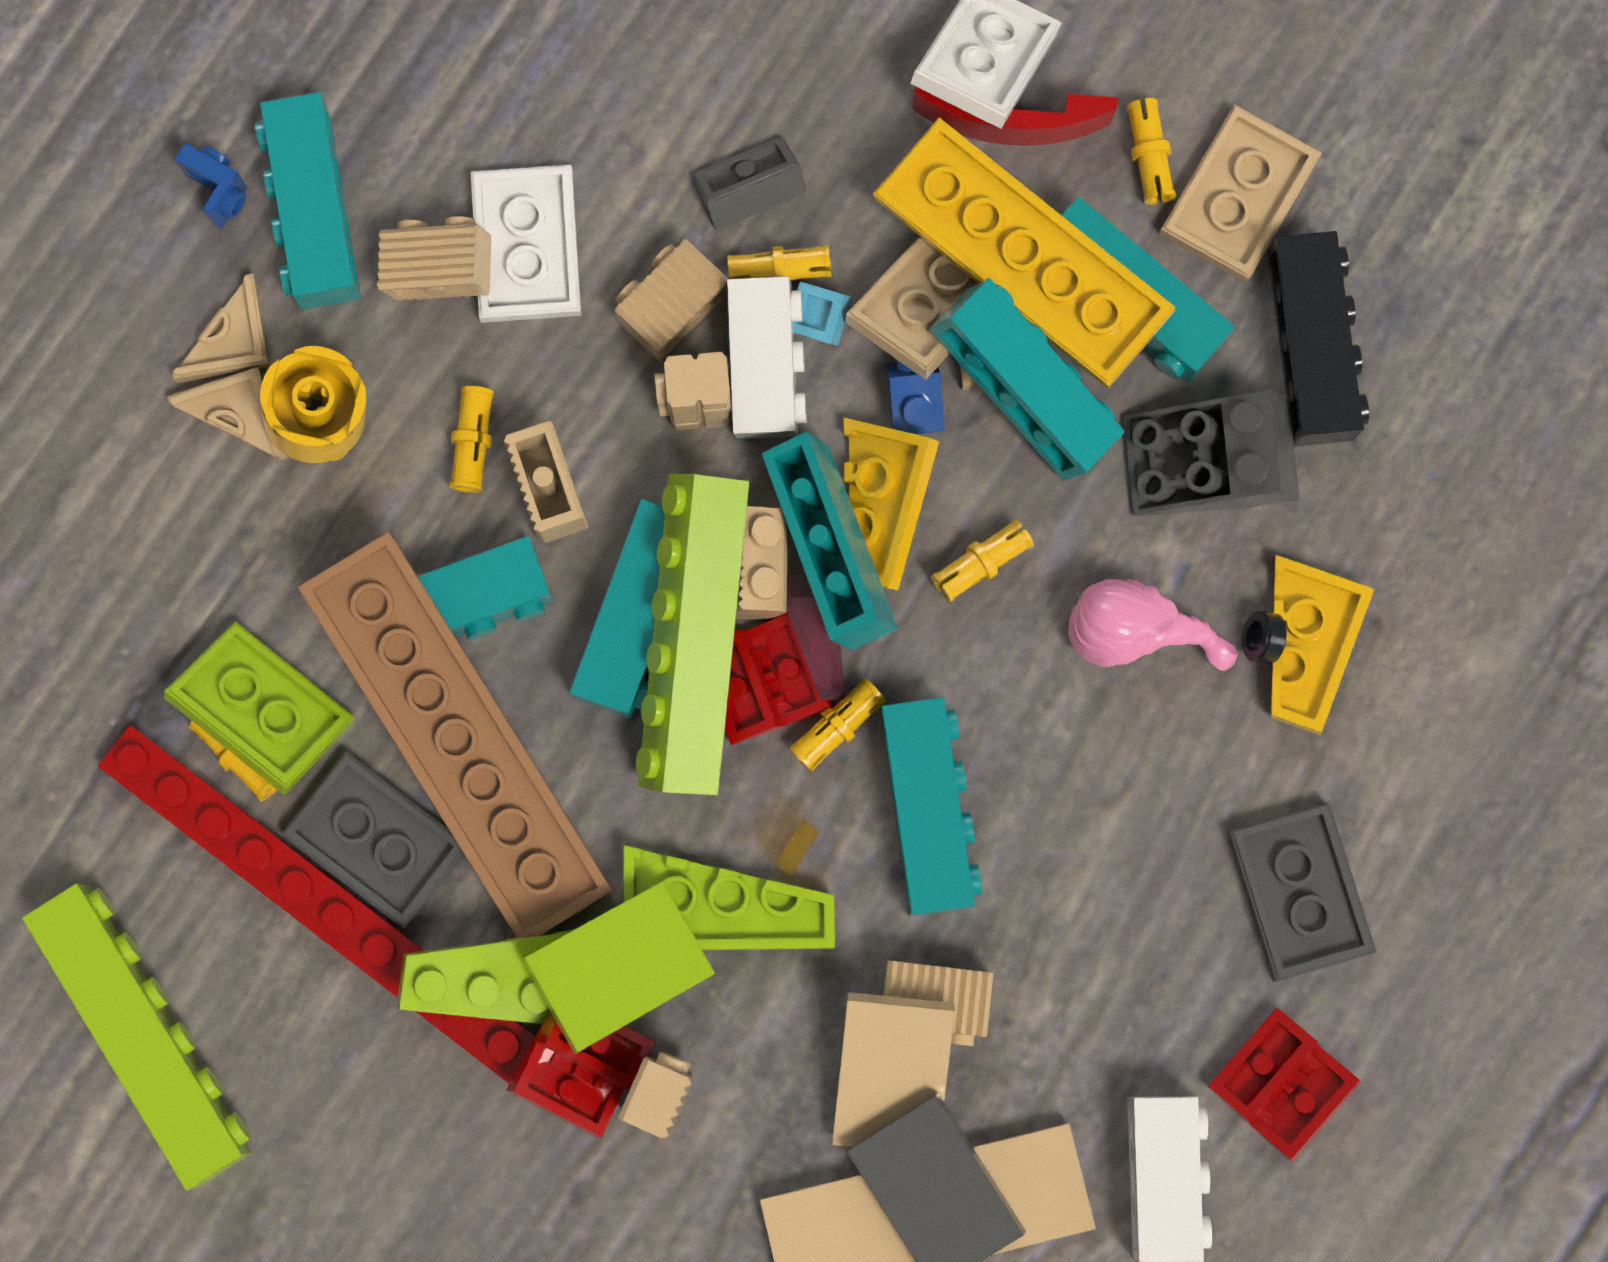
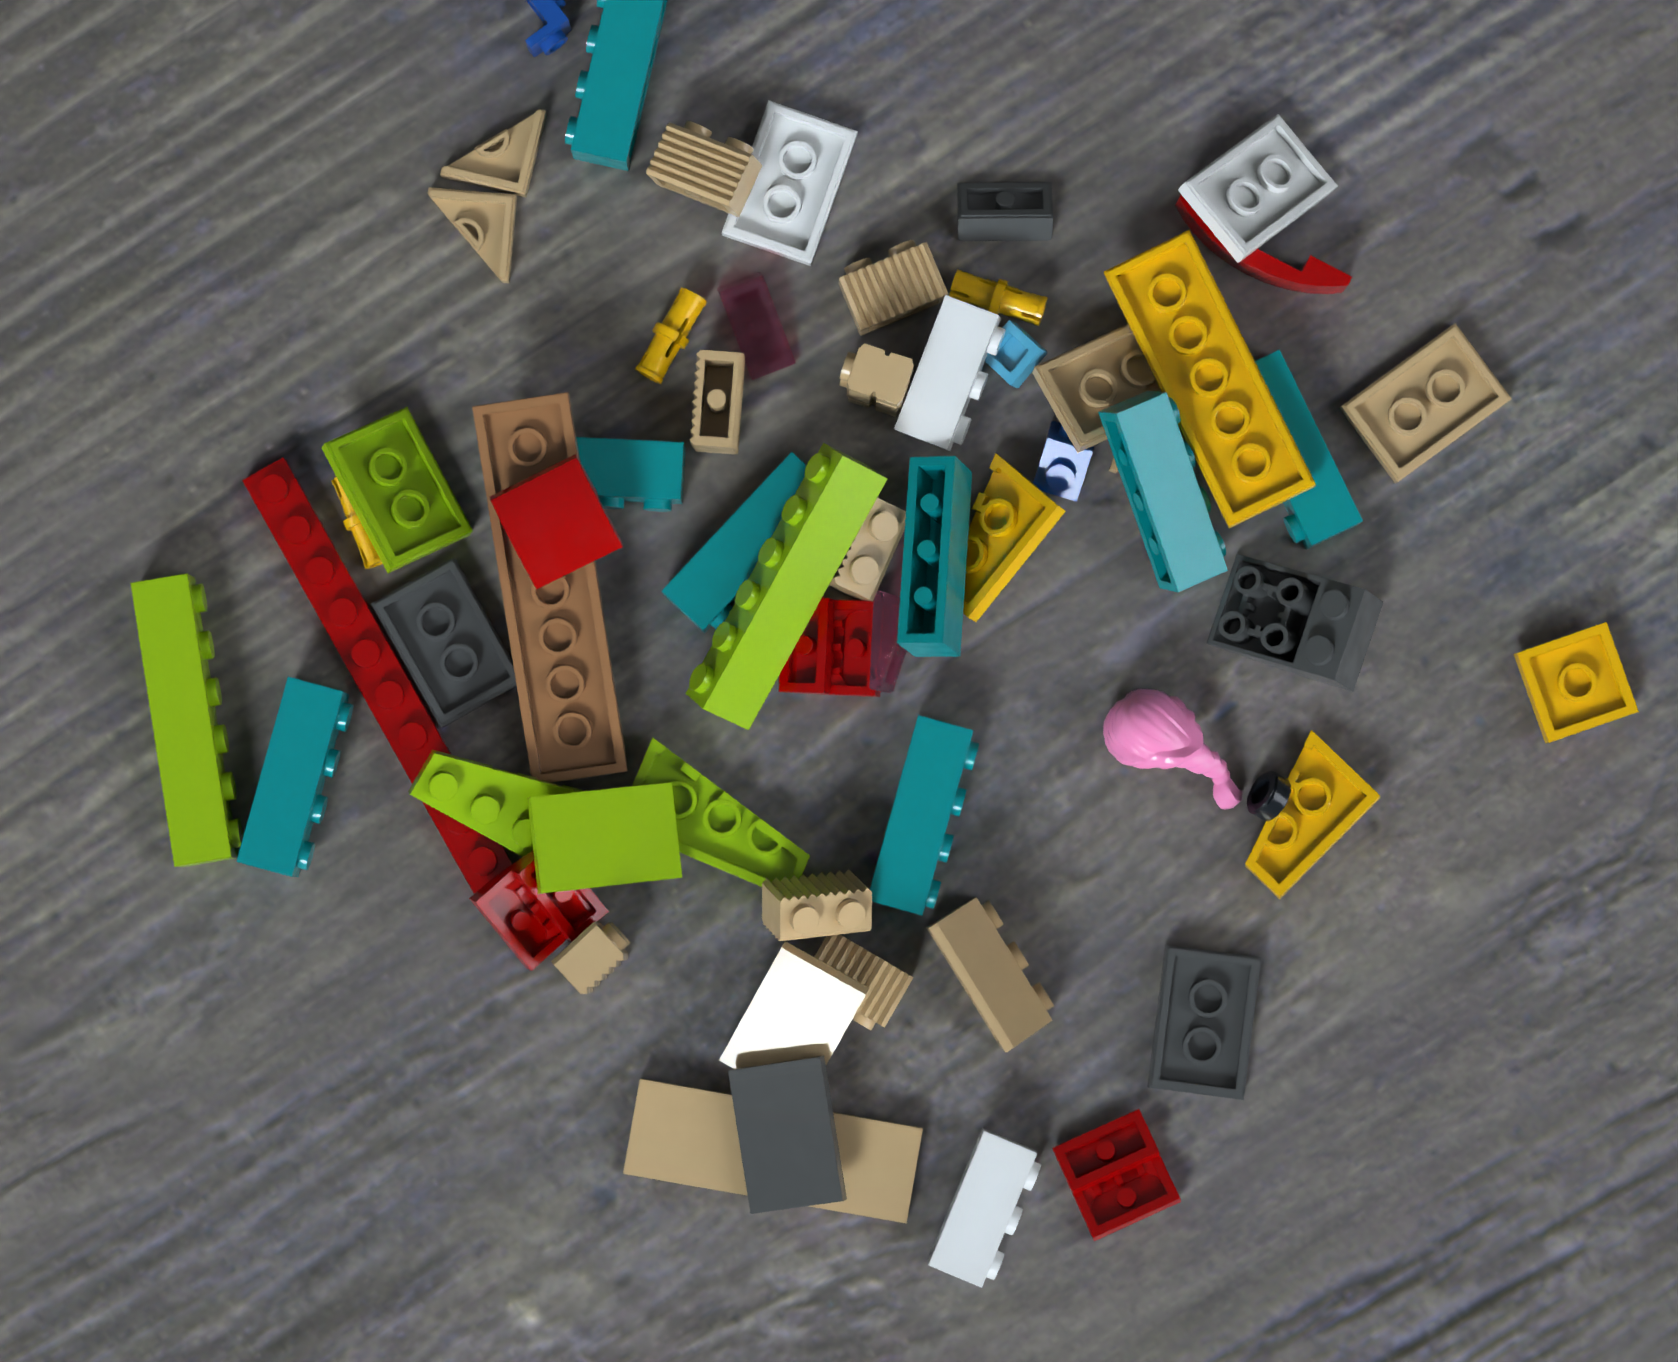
camera: 25 degrees right, 5 degrees up
(274, 1045) = (294, 778): none -> teal brick
(291, 387) = (536, 228): yellow brick -> none
(432, 666) = (556, 521): none -> red slope
(552, 394) = (756, 325): none -> clear pink slope
(796, 849) = (795, 803): clear yellow tile -> none
(837, 724) = (876, 713): yellow pin -> none
(863, 943) = (816, 906): none -> tan brick
(982, 560) = (1059, 627): yellow pin -> none
(1069, 935) = (992, 972): none -> tan slope
(1151, 151) = (1363, 333): yellow pin -> none
(1316, 338) = (1431, 558): black brick -> none
(1511, 398) = (1576, 682): none -> yellow plate

